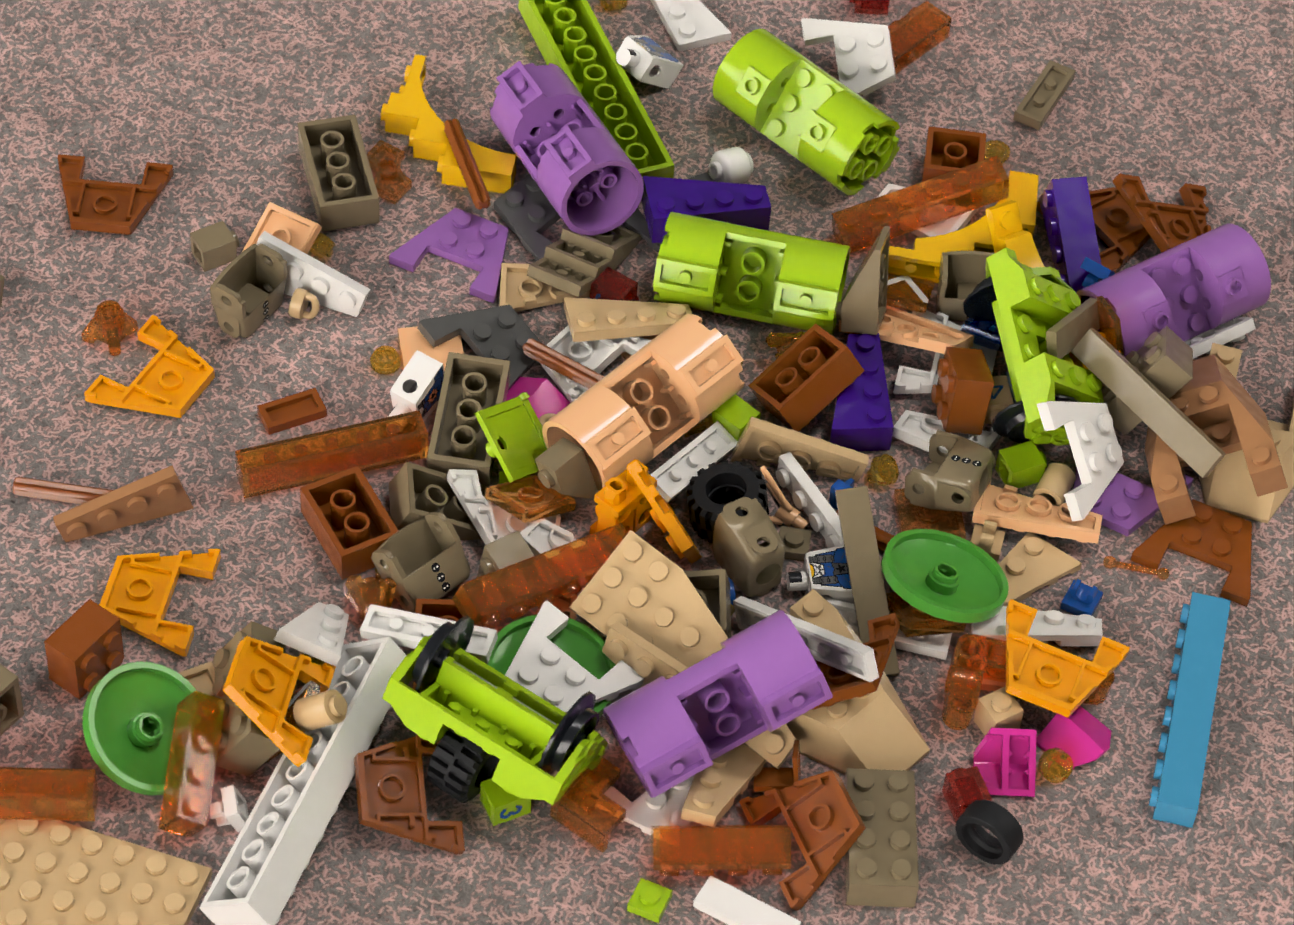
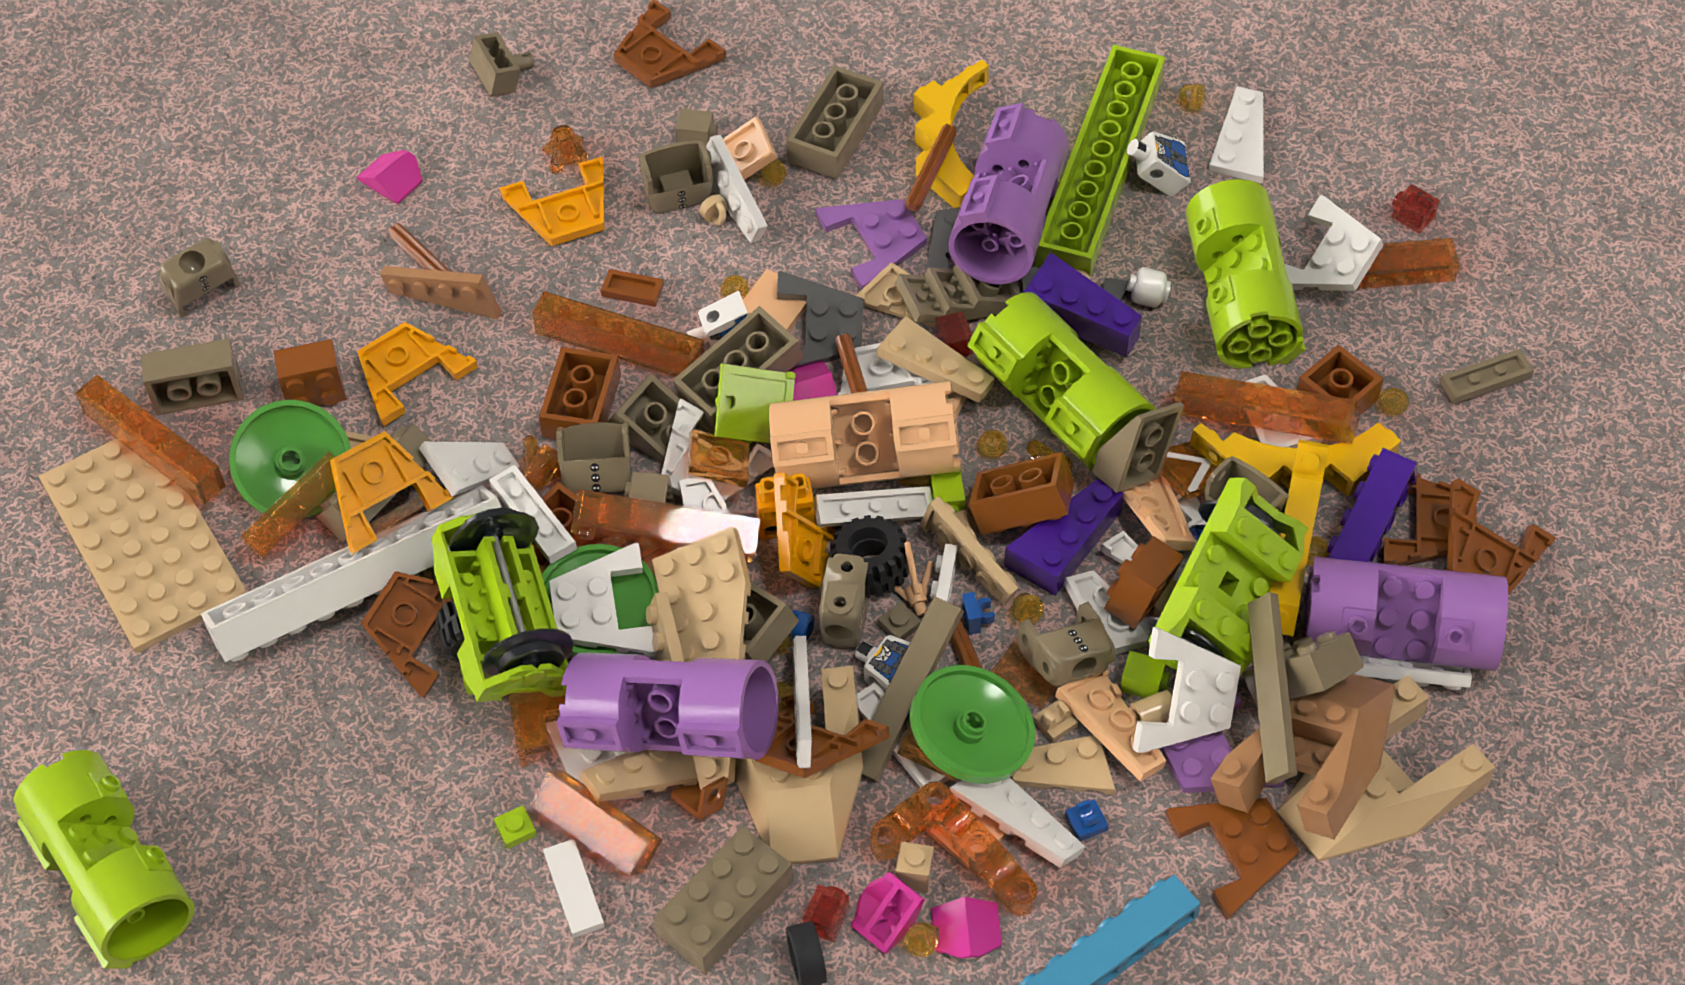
camera: 45 degrees right, 5 degrees up
(231, 809) = (298, 554): white tile -> none
(320, 710) = (395, 521): tan brick -> none
(389, 178) = (876, 151): clear orange tile -> none
(566, 470) = (754, 450): dark tan slope -> none
(821, 823) = (677, 857): dark orange wing -> none
(1049, 674) = (973, 863): light orange wing -> none
(1070, 330) = (1248, 585): dark tan tile -> none
(1096, 272) = (1355, 549): blue tile -> none
(1110, 324) = (1300, 606): clear orange piece -> none
(1110, 562) = (1144, 805): clear orange hinge -> none

